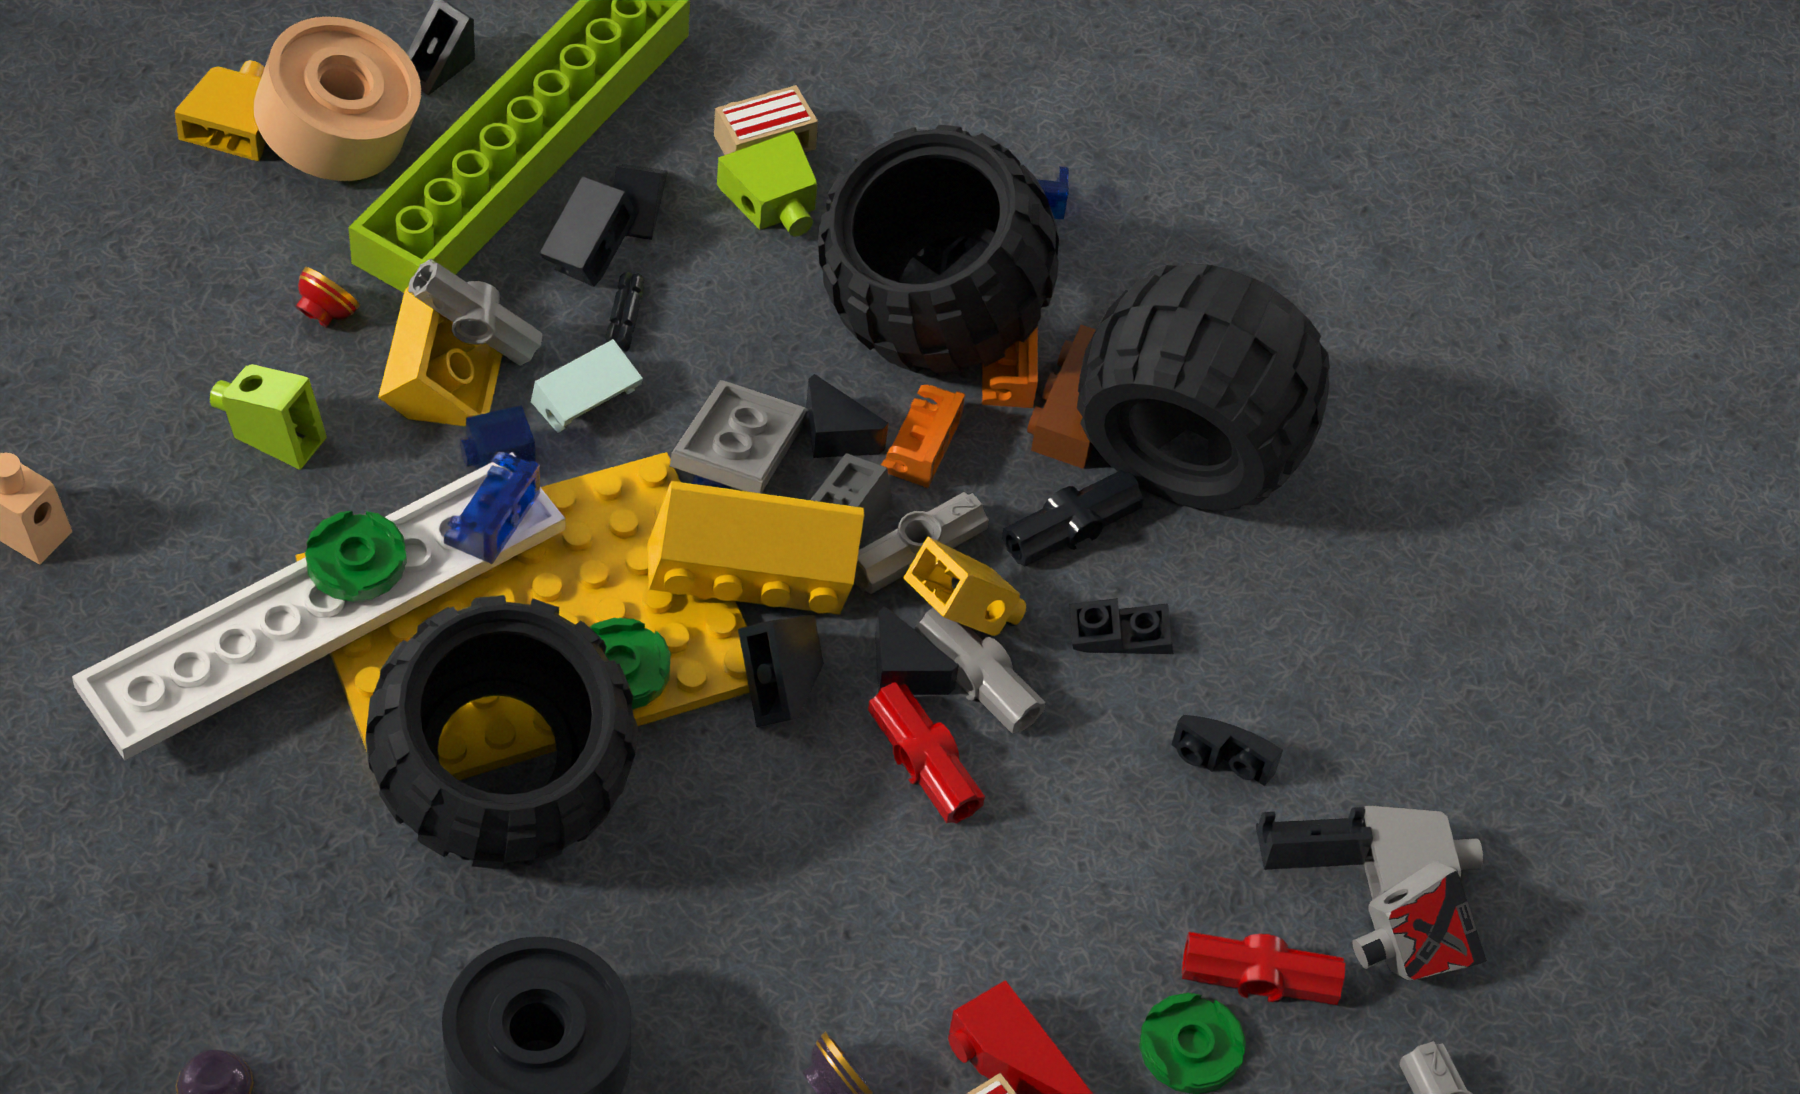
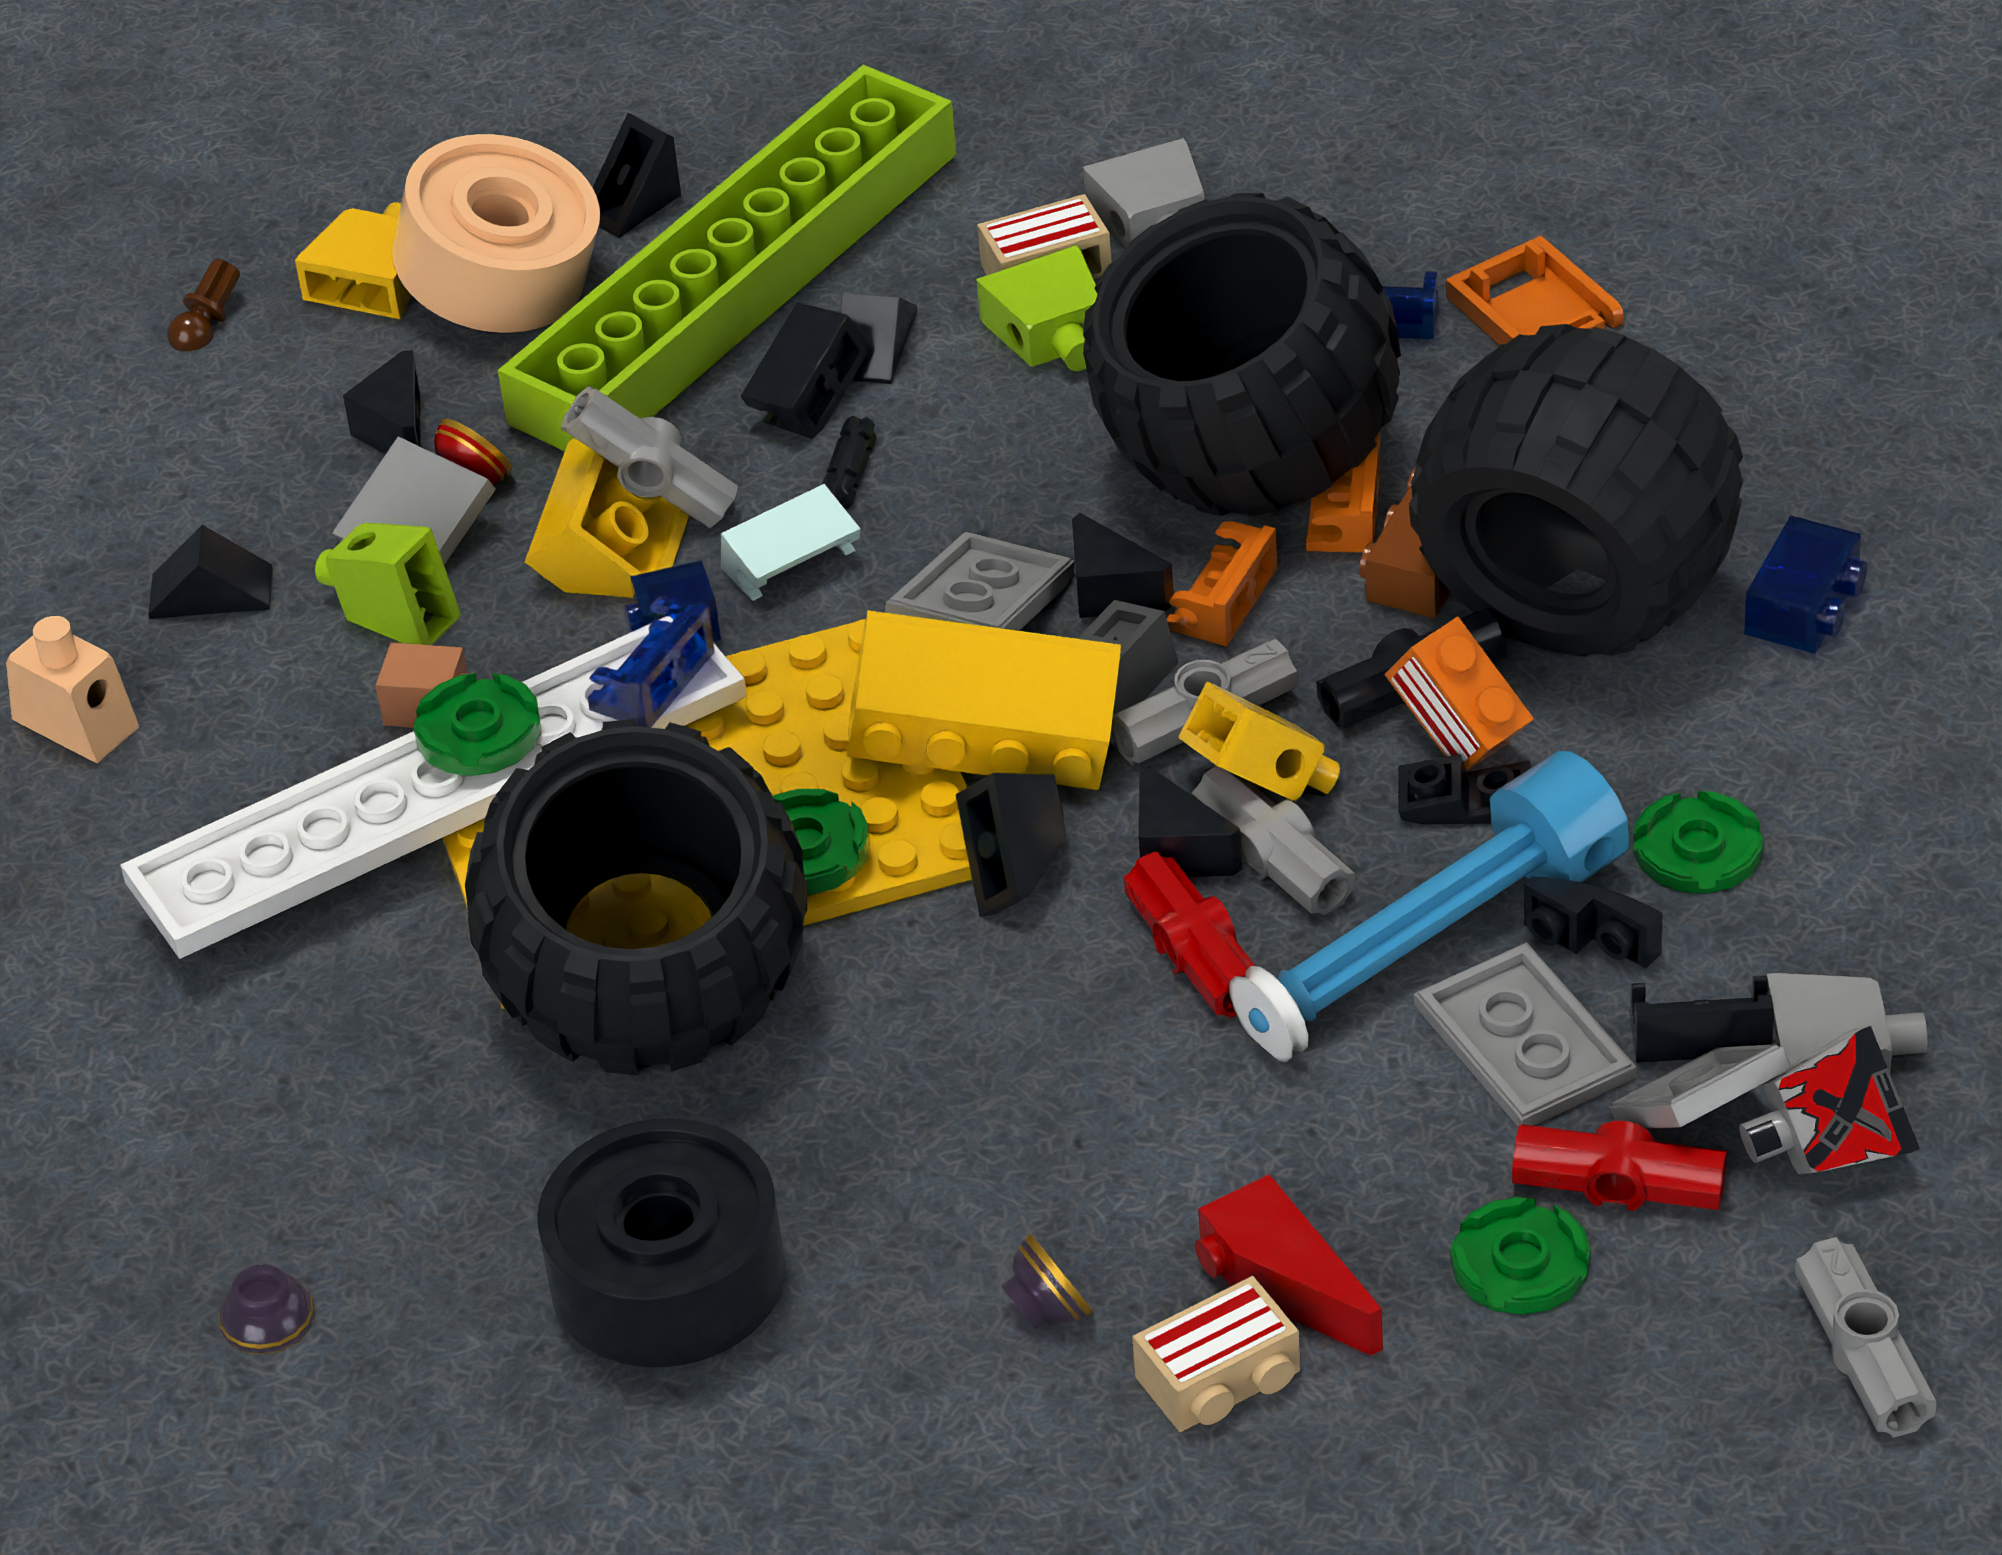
camera: 15 degrees right, 10 degrees down
(91, 163) = (193, 328): none -> reddish brown axle
(122, 399) = (210, 578): none -> black slope
(255, 250) = (386, 404): none -> black slope
(286, 336) = (419, 490): none -> light grey tile
(301, 504) = (410, 674): none -> nougat brick
(844, 88) = (1142, 188): none -> light grey torso
(1116, 551) = (1458, 694): none -> orange brick
(1144, 202) = (1554, 296): none -> orange container
(1180, 846) = (1524, 1036): none -> light grey tile
(1191, 669) = (1545, 823): none -> dark azure piece
(1291, 688) = (1698, 859): none -> green tile
(1321, 904) = (1701, 1086): none -> light grey tile
(1359, 454) = (1805, 585): none -> clear blue brick

